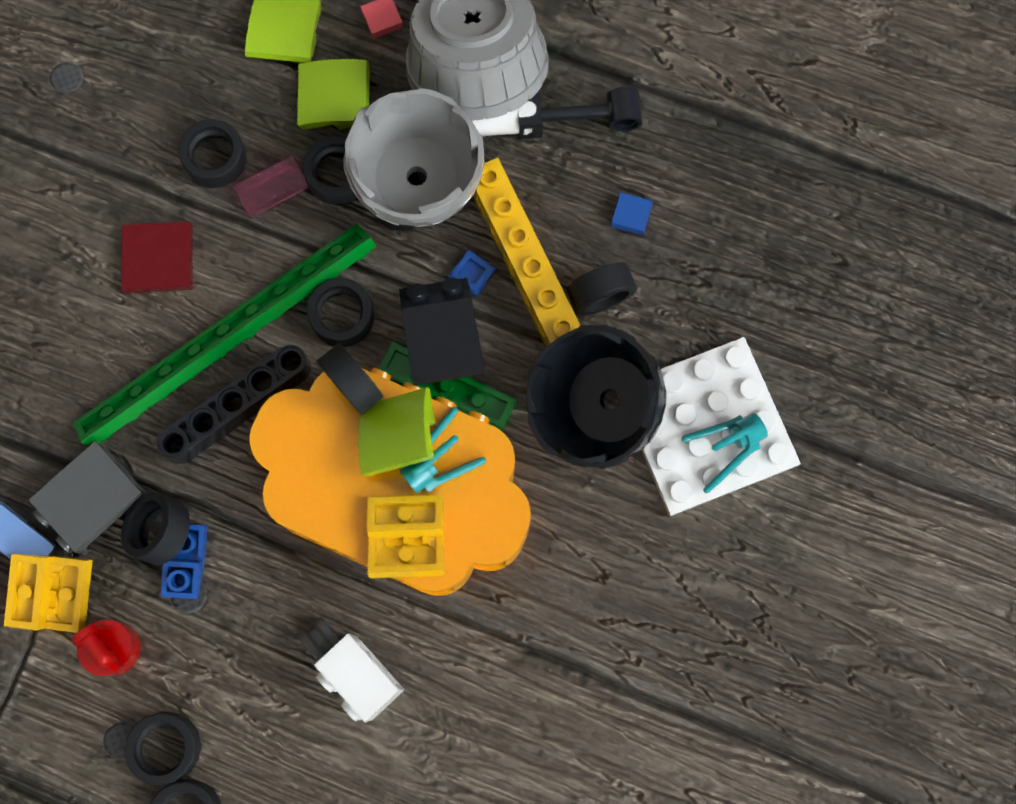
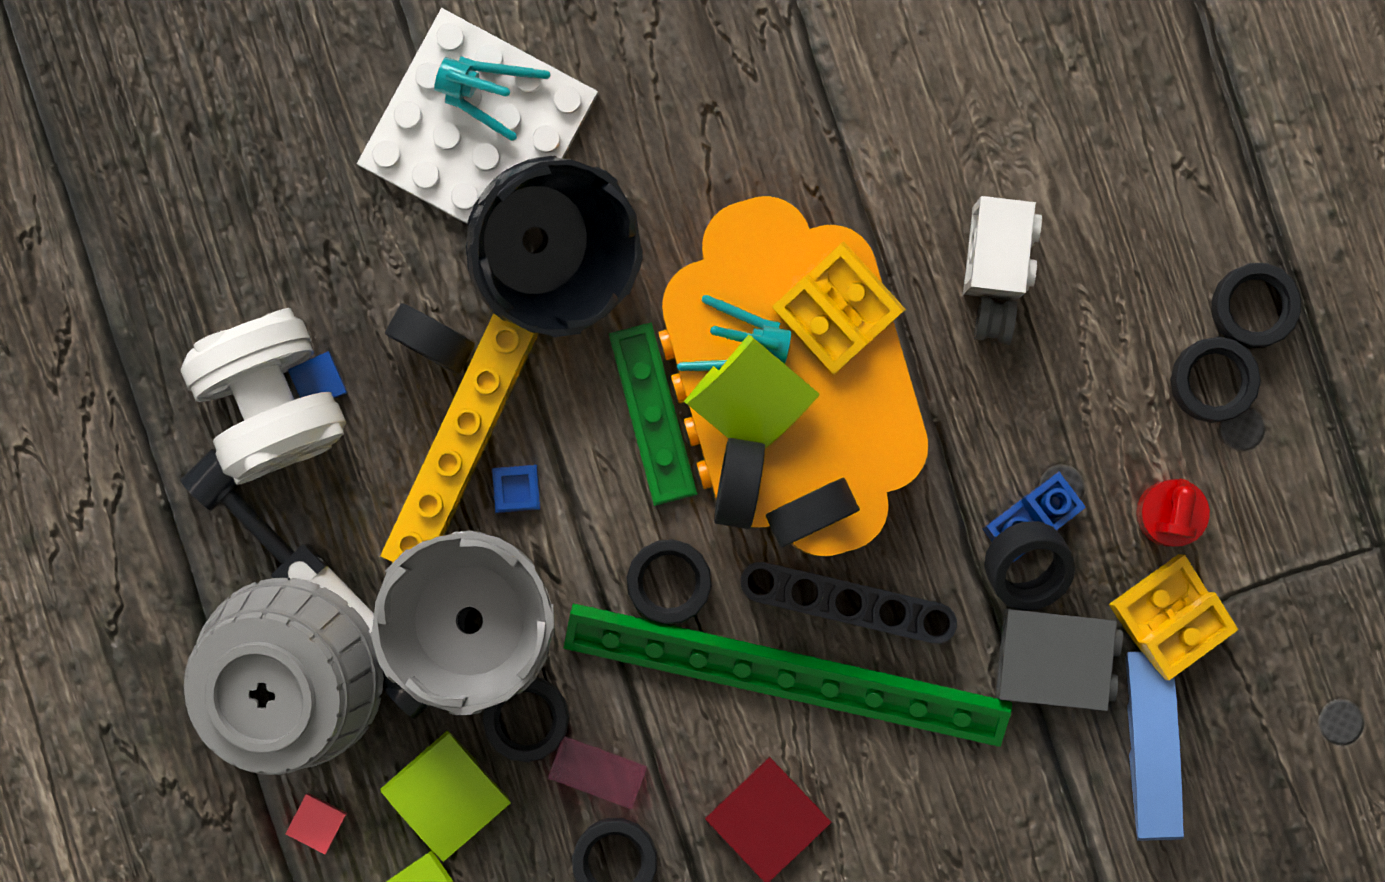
camera: 125 degrees left, 10 degrees up
(292, 408) = (812, 512): none -> black tyre
(441, 331) = (609, 455): black slope -> none
(669, 171) = (252, 367): none -> white wheel

